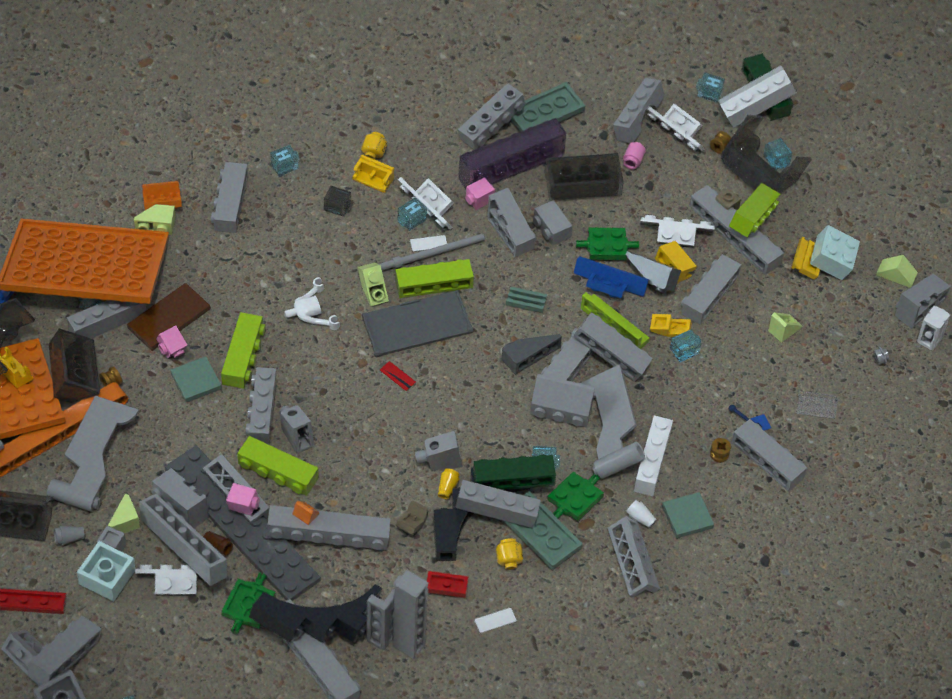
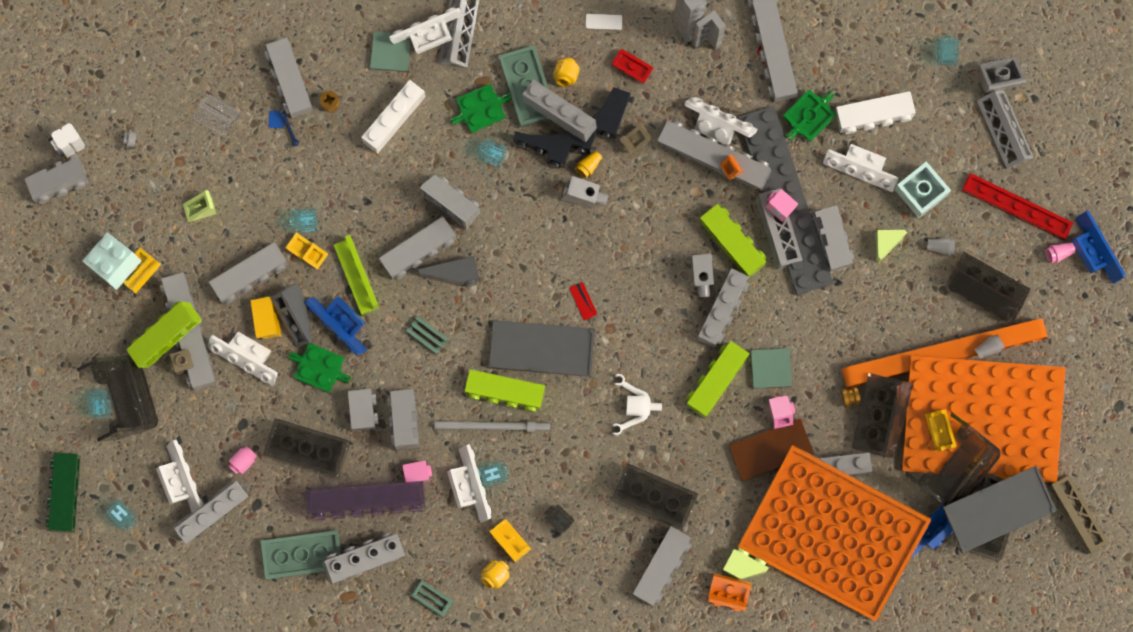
camera: 155 degrees left, 25 degrees up
(64, 650) = (984, 121): light grey brick -> none
(87, 453) = (898, 320): light grey door -> none
(113, 538) = (907, 218): light grey panel -> none
(182, 629) = (875, 112): none -> white brick
(183, 539) = (848, 187): light grey brick -> none
(220, 543) = (814, 185): reddish brown cone -> none
(260, 240) = (654, 497): none -> clear smoke brick
(284, 160) = (590, 592): clear light blue brick -> none
(319, 622) = (758, 57): black arch -> none
(337, 561) = (717, 123): none -> white bracket
(373, 283) = (565, 407): yellowish green slope -> none
(419, 120) = (445, 607): none -> sand green tile
(427, 243) = (489, 440): white sticker -> none
(515, 472) = (530, 135): dark green brick -> none
(613, 346) = (377, 236): light grey brick -> none
(617, 423) = (410, 160): light grey door -> none
(640, 513) = (432, 67): white cone -> none
(659, 531) = (429, 33): none -> white bracket
(720, 142) = (148, 441): pearl gold wheel -> none
(757, 96) = (85, 476): white slope -> none
(897, 270) = (61, 226): yellowish green slope -> none

